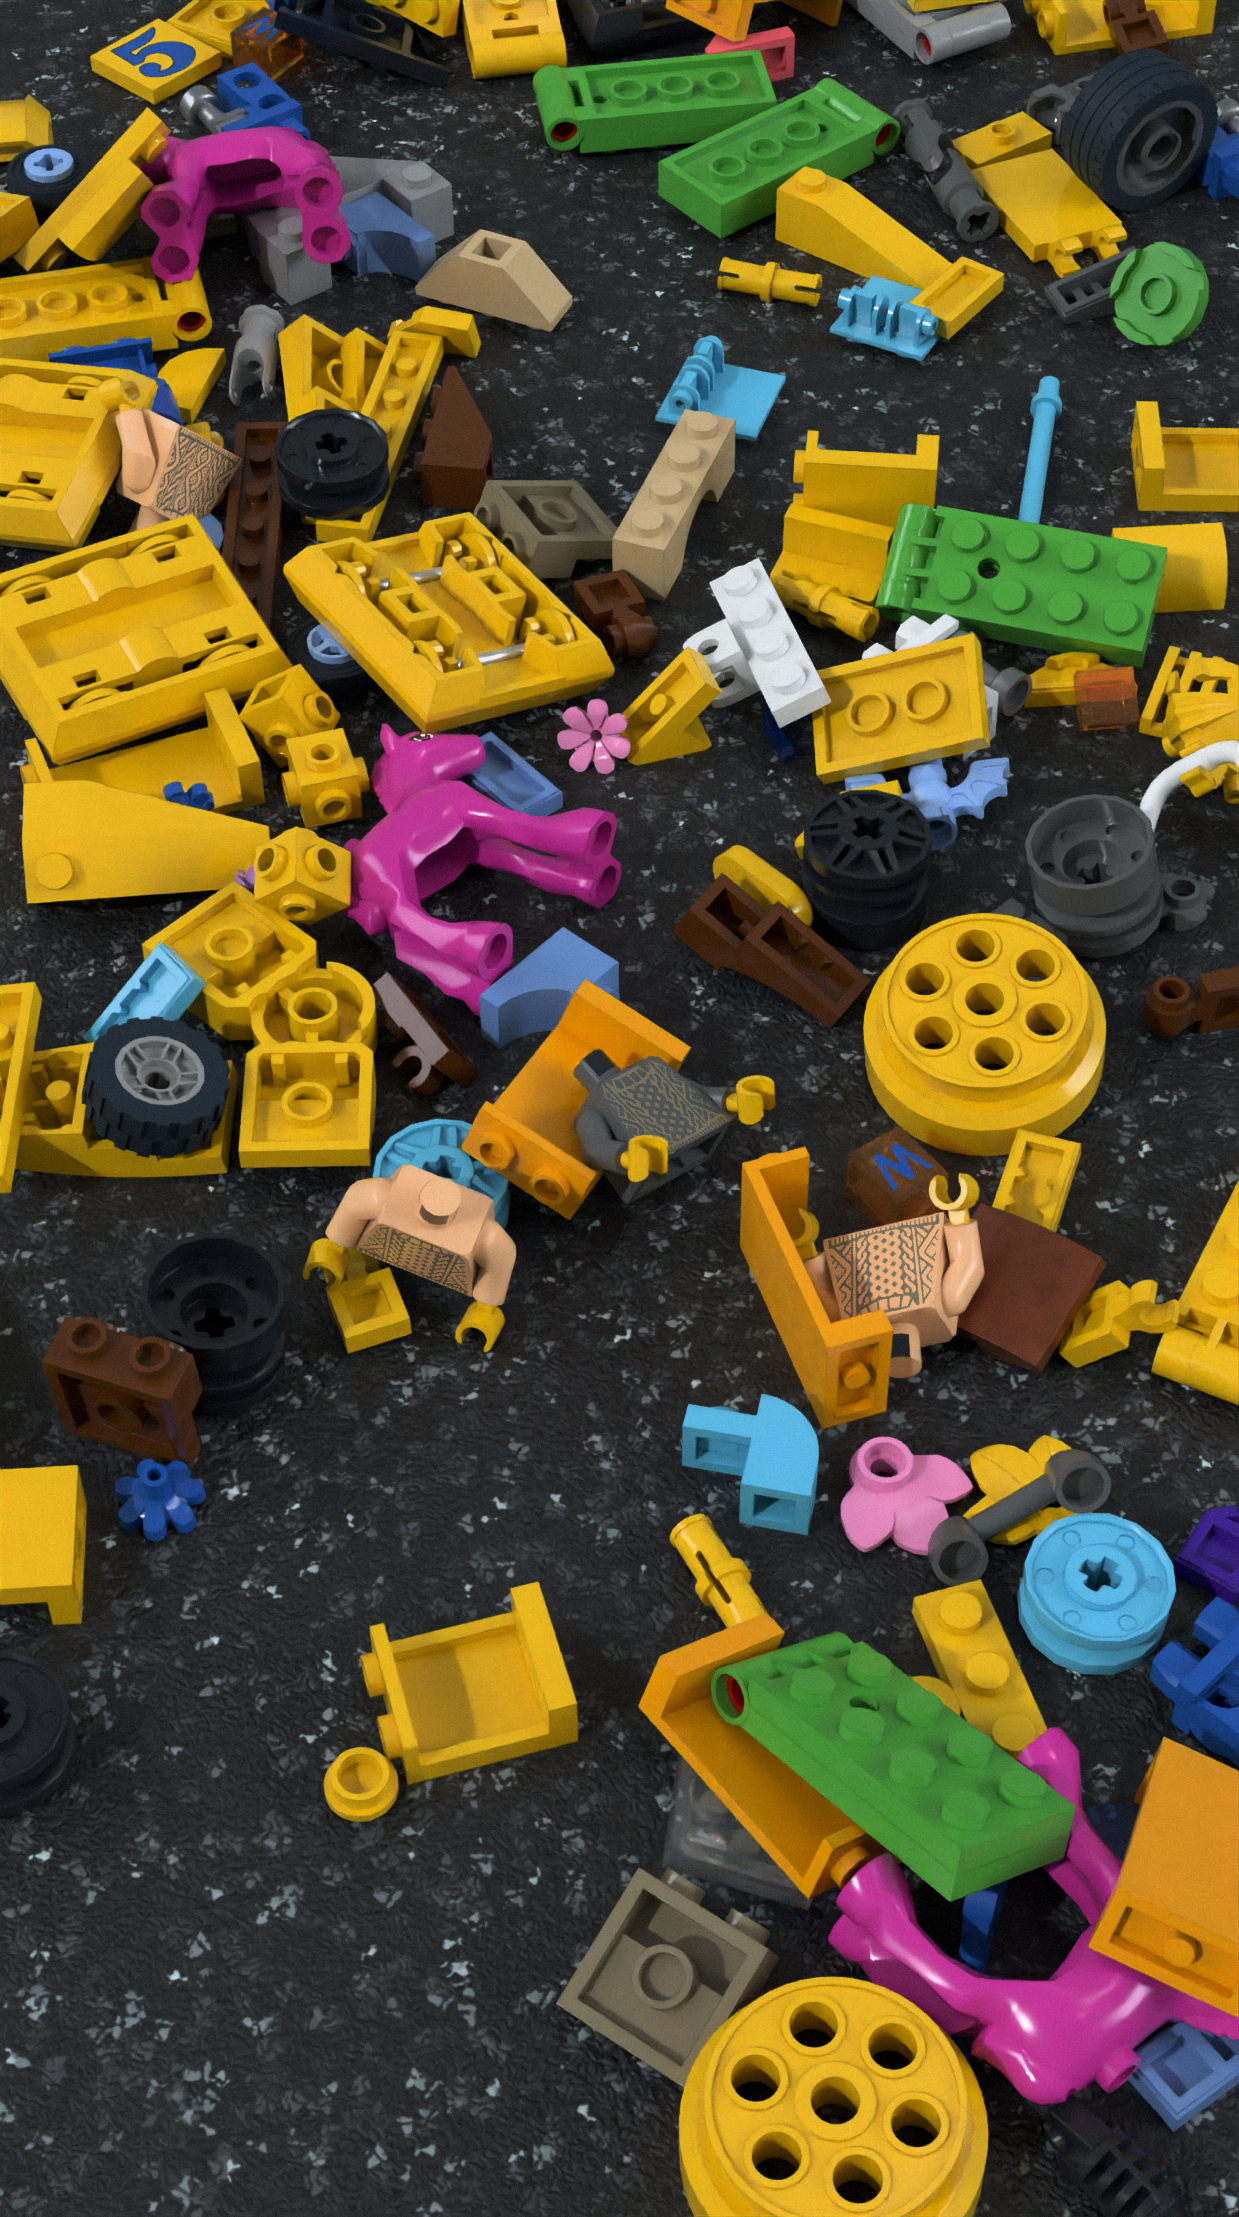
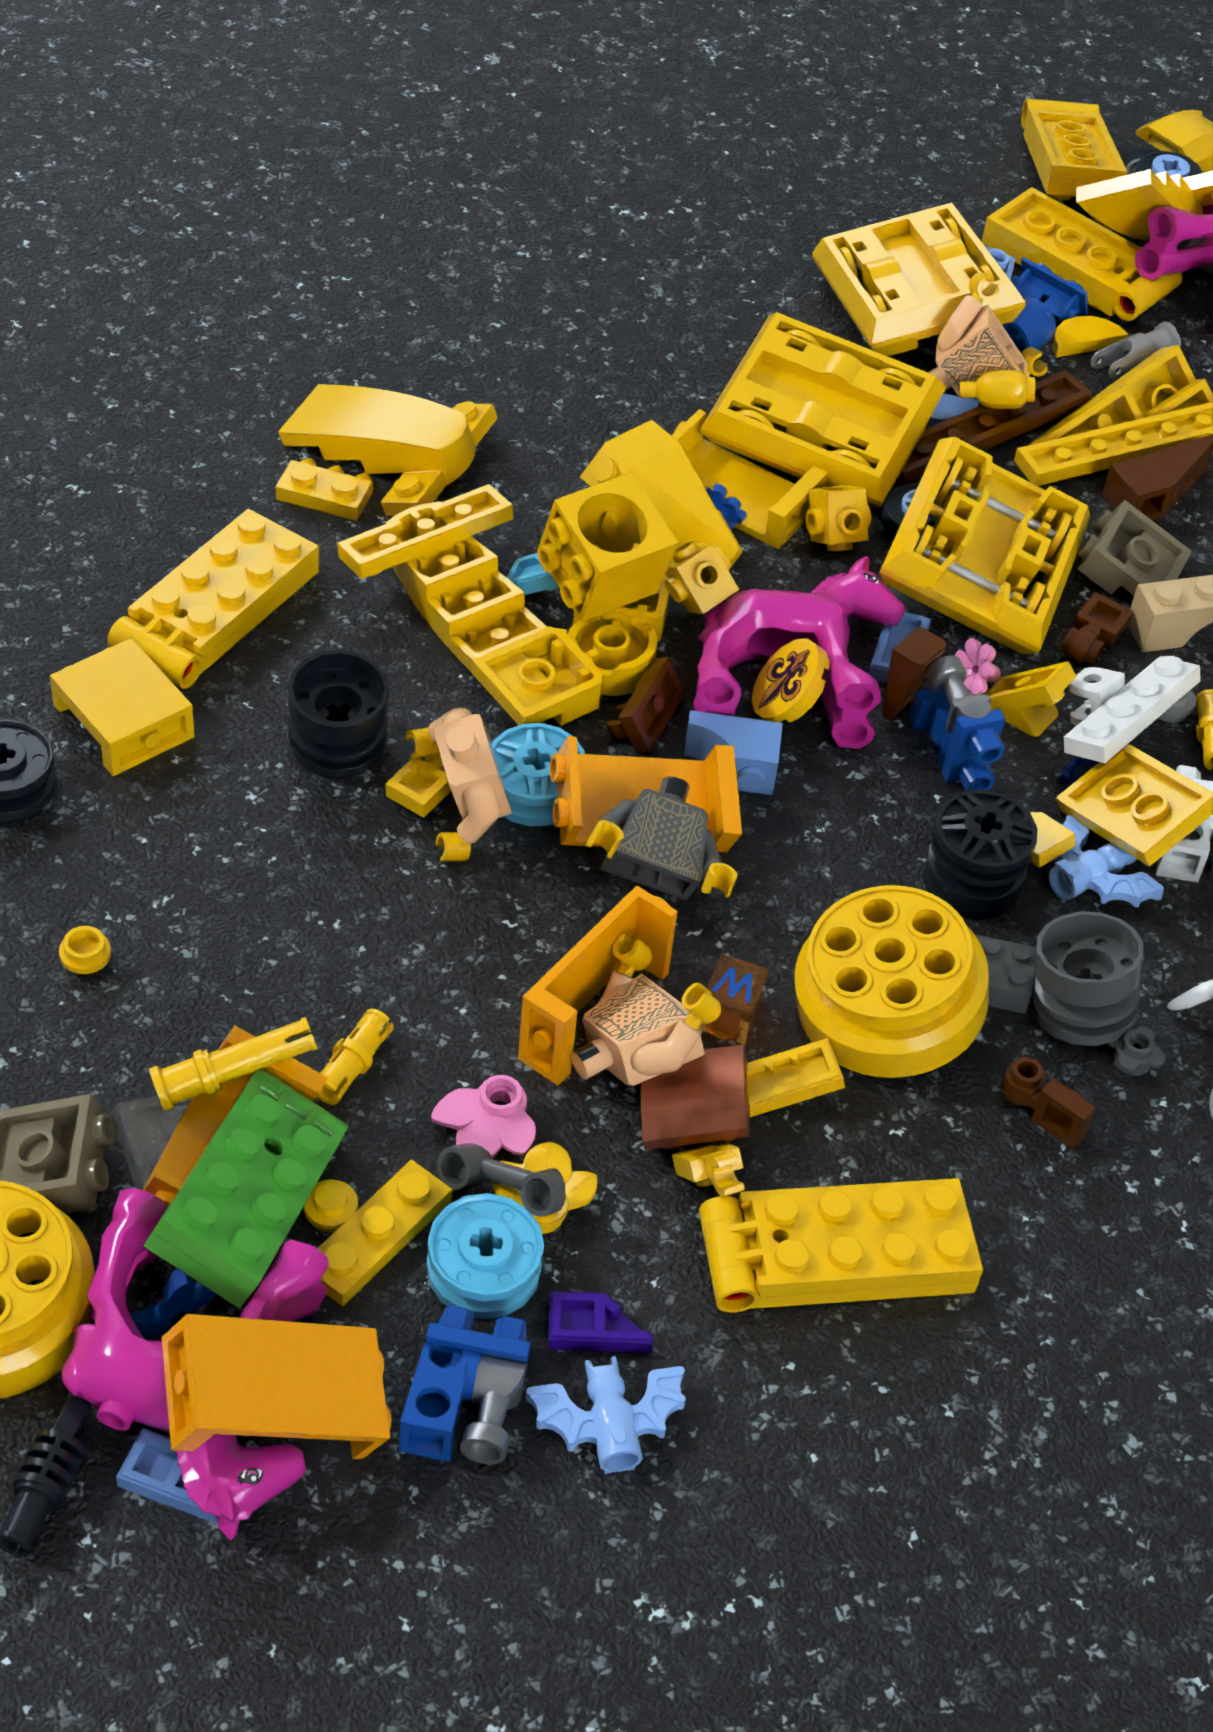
camera: 50 degrees right, 0 degrees up
(125, 1389) = (257, 694): reddish brown plate -> none
(155, 1087) = (478, 575): black wheel -> none
(159, 1498) = (218, 763): blue plant -> none
(221, 920) = (619, 519): none -> yellow brick
(235, 482) = (1000, 389): none -> yellow plant
(324, 778) = (805, 556): yellow brick -> none
(332, 464) = (1063, 424): black wheel -> none
(472, 1691) = (183, 968): yellow panel -> none
(507, 881) = (790, 681): none -> yellow tile
(586, 764) = (909, 668): none -> reddish brown slope
(682, 787) = (959, 725): none -> blue hips
(705, 1717) = (209, 1070): none -> yellow pin
(762, 881) = (921, 816): yellow tile -> none
(770, 1451) = (458, 1036): medium azure brick -> none
(771, 947) = (871, 831): reddish brown slope -> none

